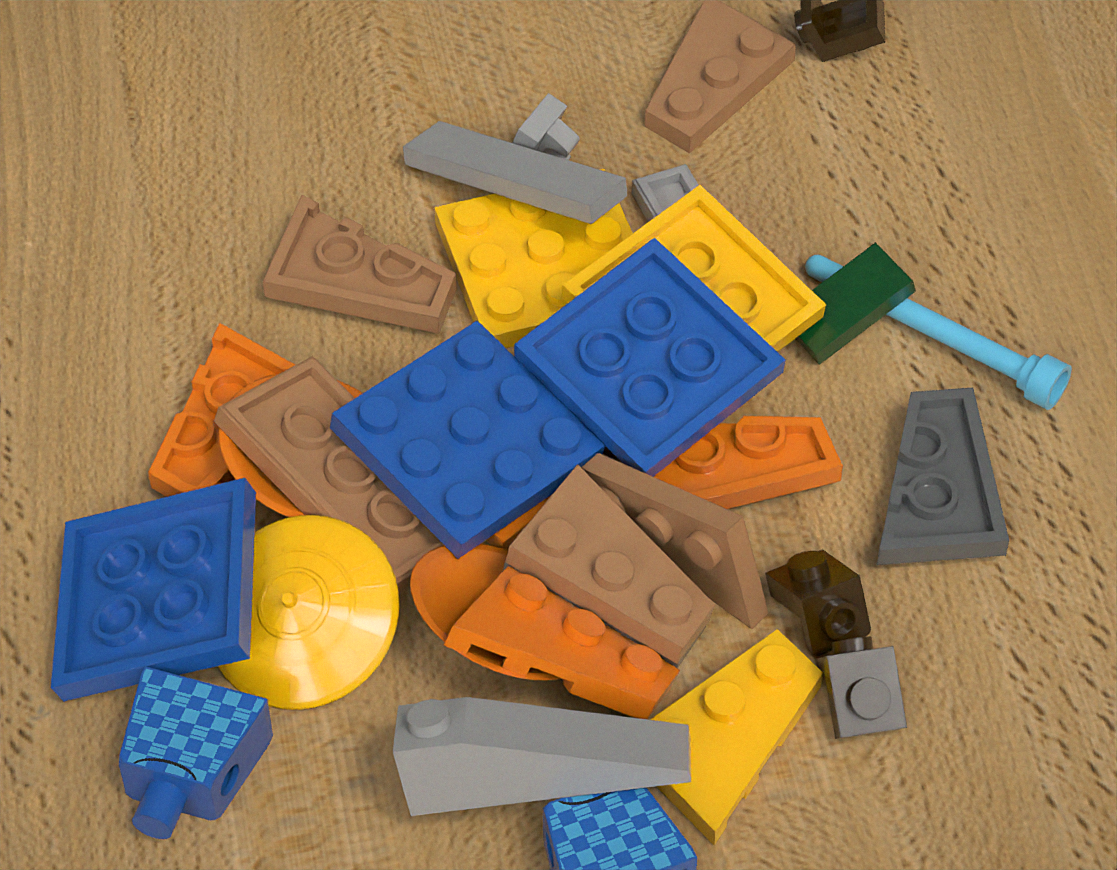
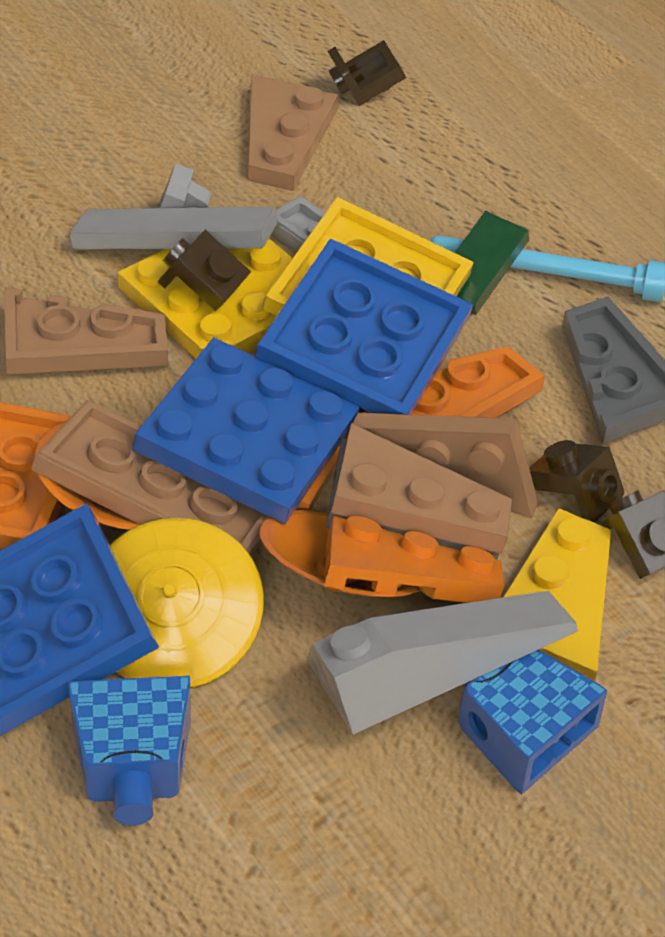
camera: 25 degrees left, 5 degrees down
(516, 234) = (205, 269): none -> dark brown bracket

